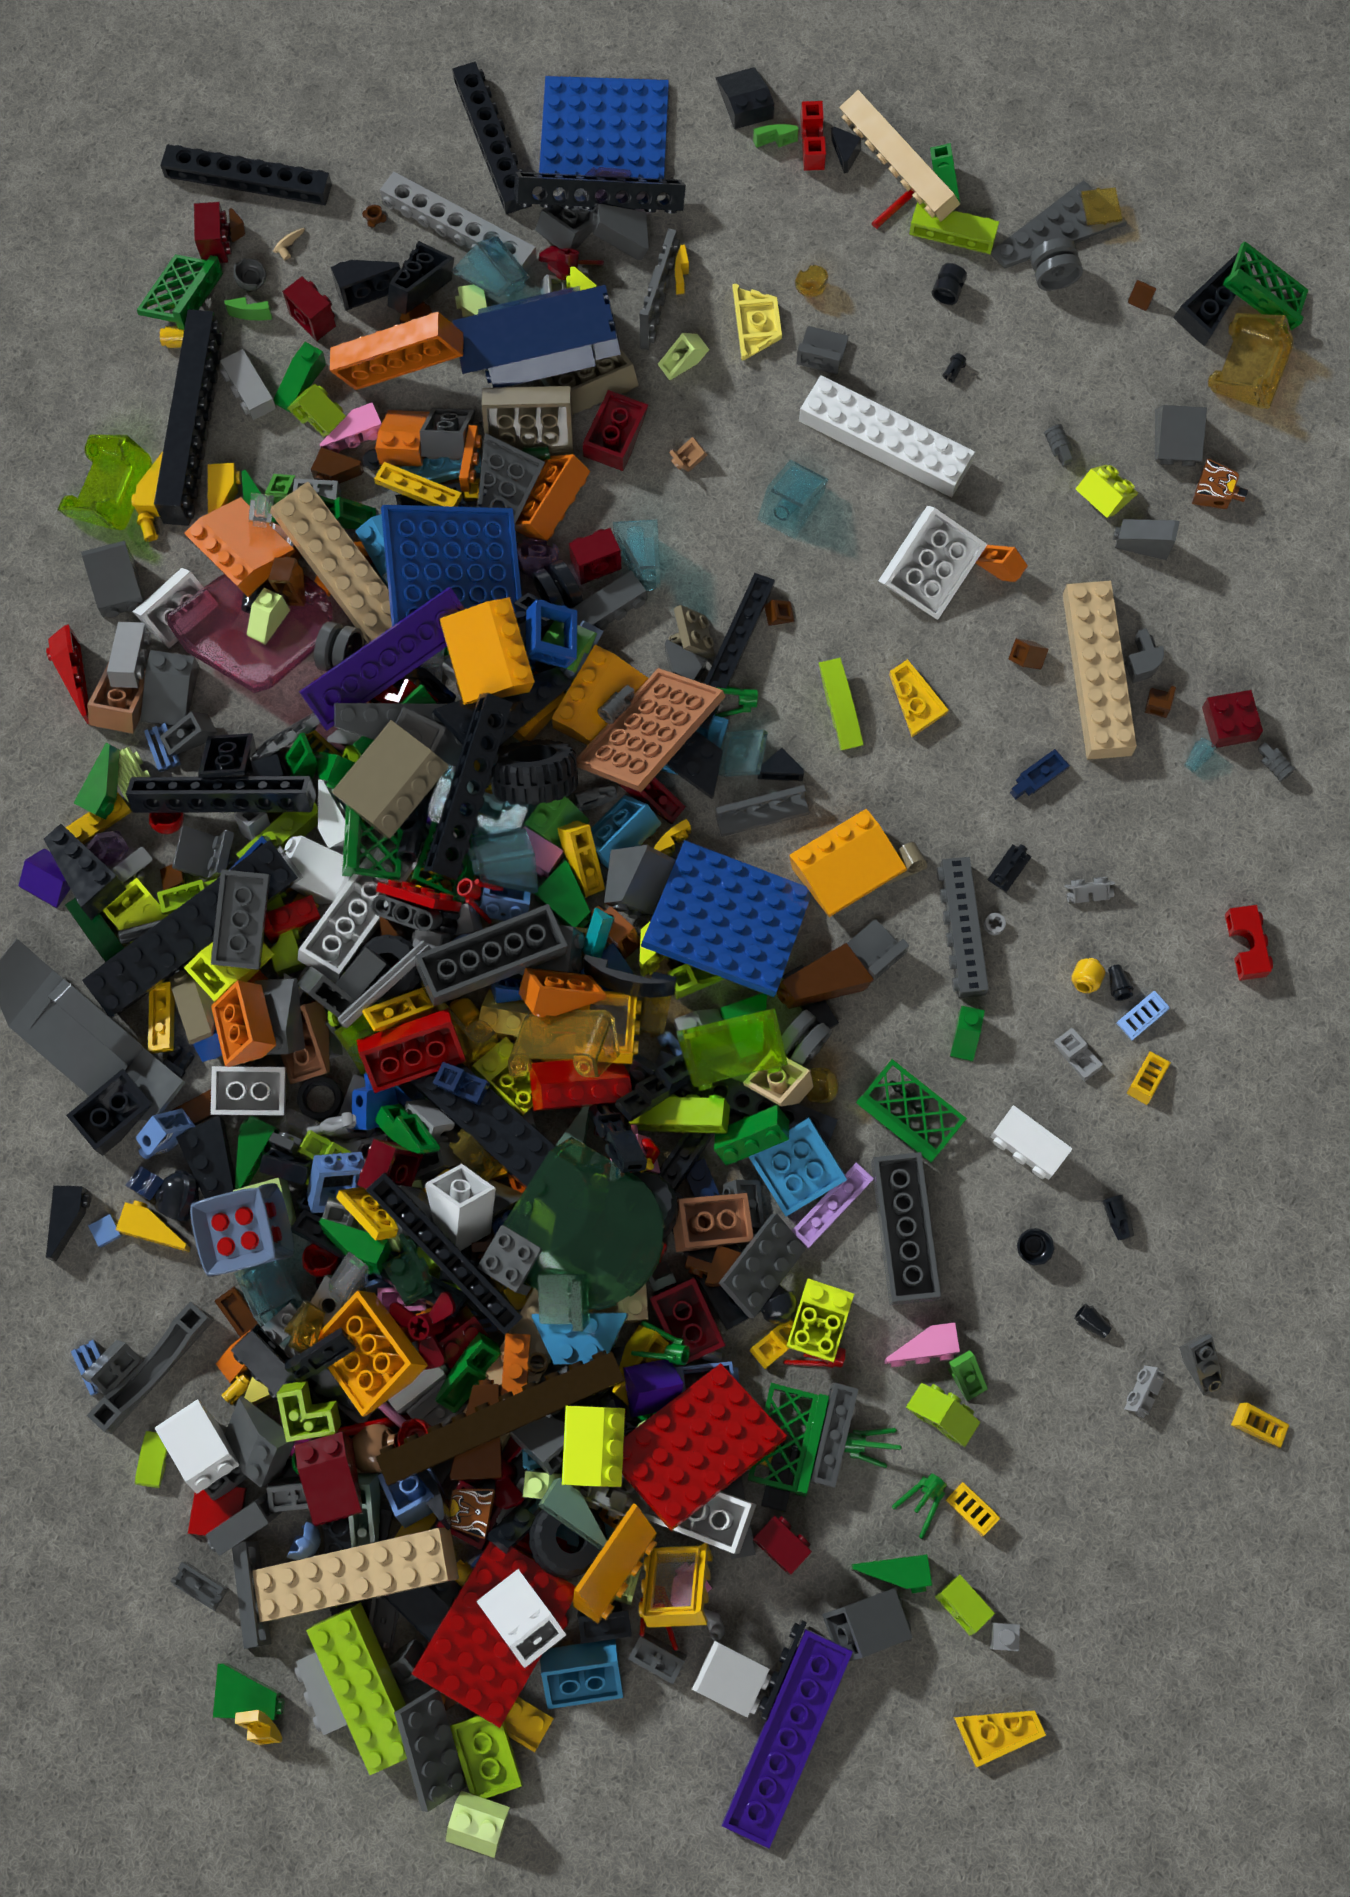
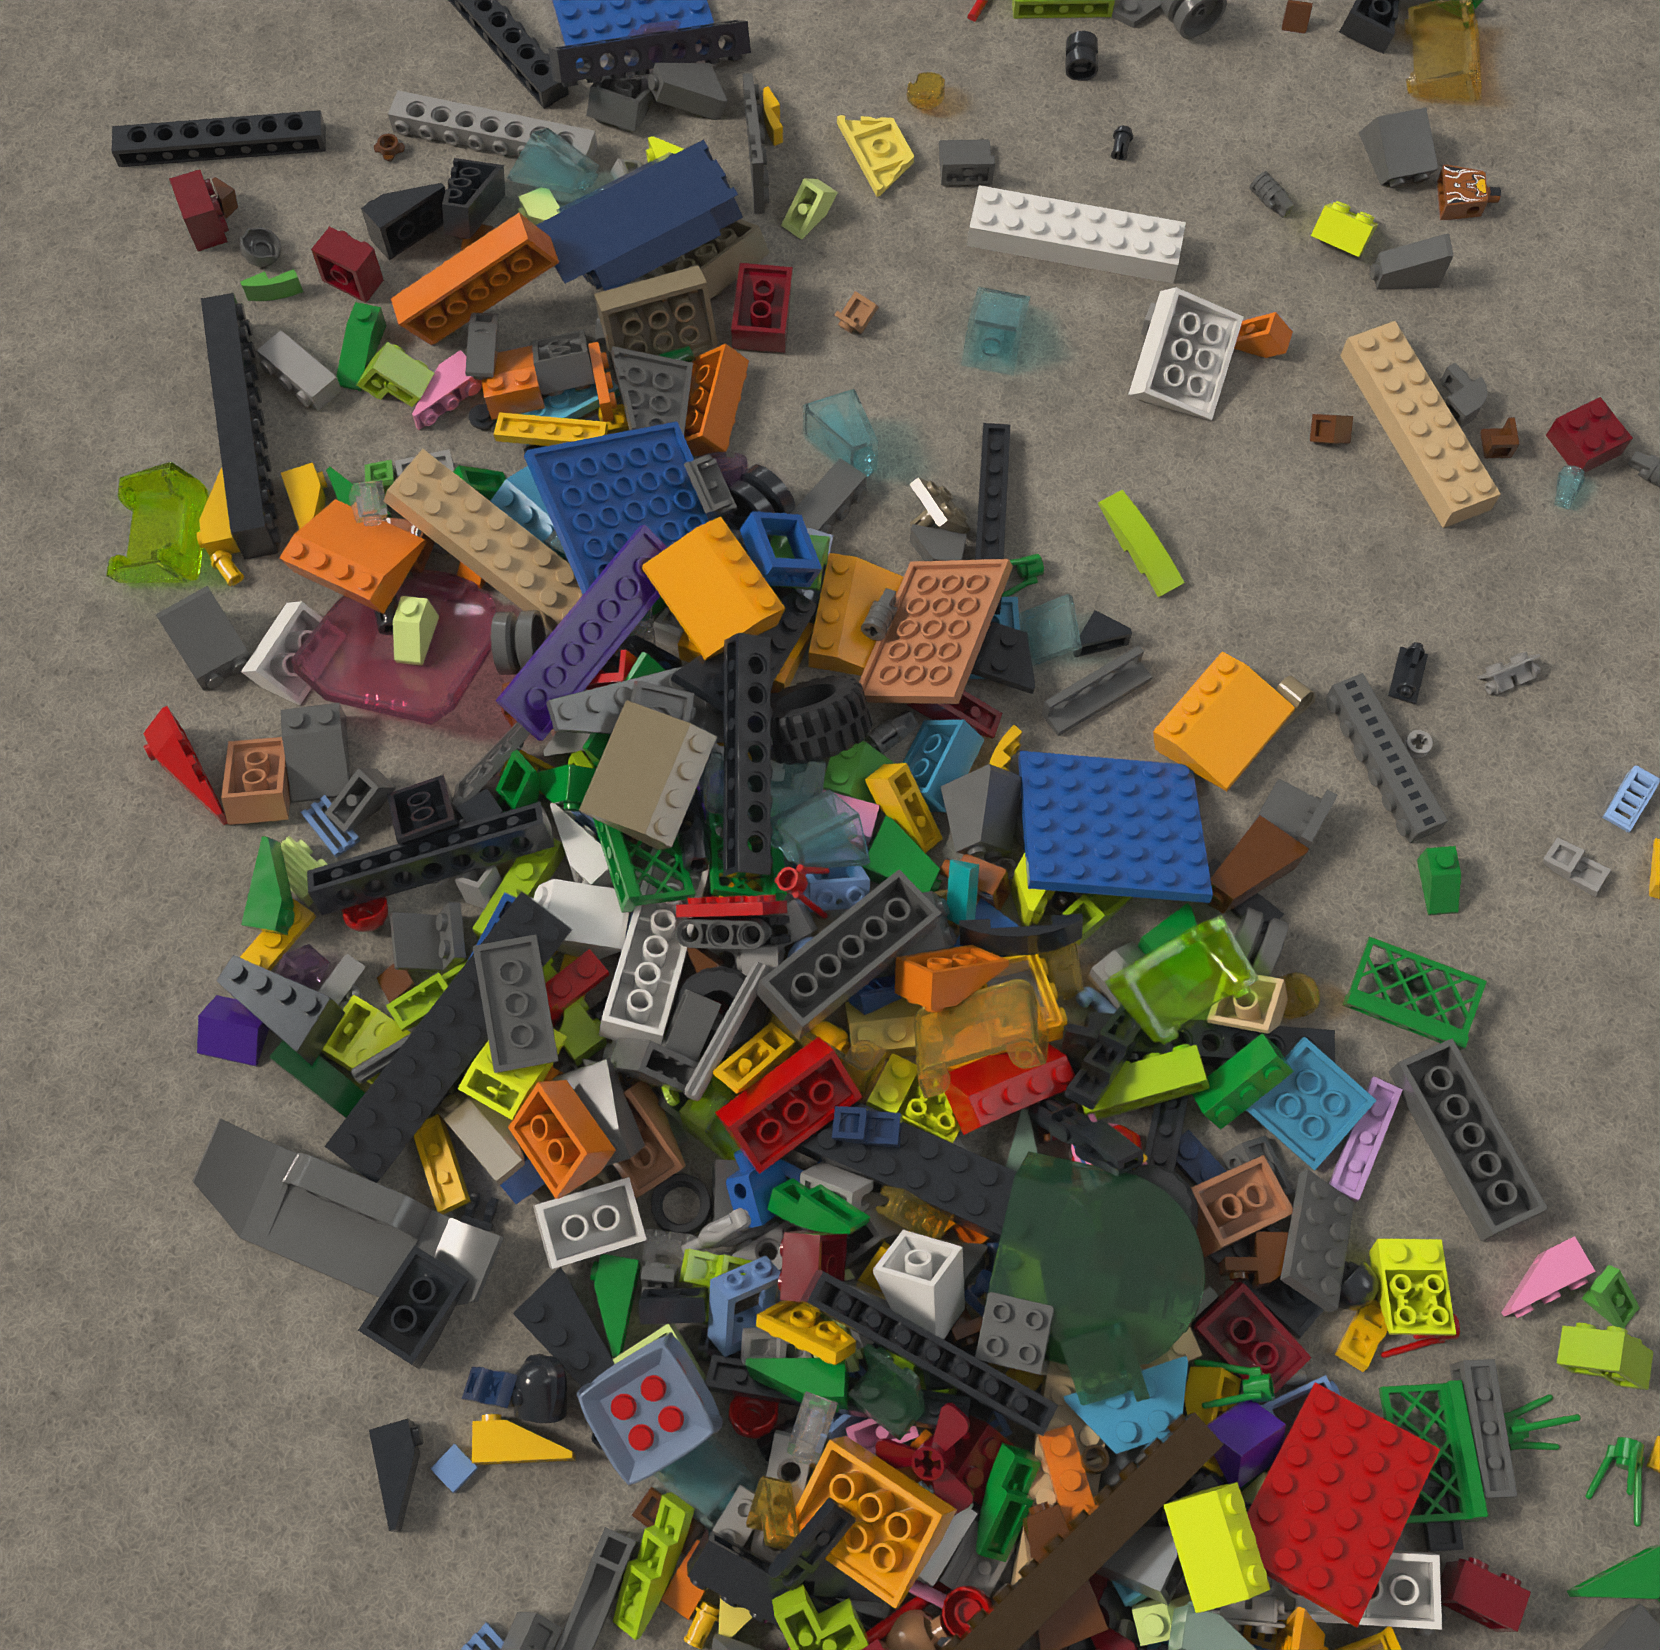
camera: 20 degrees left, 5 degrees down
(128, 654) = (253, 724): light grey brick -> none
(161, 1132) = (489, 1321): medium blue torso -> none
(171, 336) = (189, 339): yellow brick -> none
(194, 294) = (200, 283): green fence -> none
(198, 1108) = (523, 1271): reddish brown tile -> none
(212, 1342) = (652, 1570): none -> lime slope
(286, 242) = (294, 198): tan bar -> none
(288, 580) = (429, 578): reddish brown slope -> none
(335, 466) = (440, 434): reddish brown slope -> none
(388, 404) = (482, 345): none -> dark grey slope
(518, 568) = (710, 487): none -> dark grey hinge
(561, 260) = (635, 138): dark red piece -> none
(595, 555) = (793, 449): dark red brick -> none
(779, 612) = (1026, 461): reddish brown slope -> none
(917, 699) = (1223, 512): yellow wing -> none
(1030, 1143) = (1572, 987): white slope -> none
(1038, 1241) = (1632, 1106): black hair -> none
(1039, 774) = (1399, 558): dark blue hinge -> none
(1088, 975) = (1551, 770): yellow head -> none
(1119, 983) = (1591, 771): black cone -> none

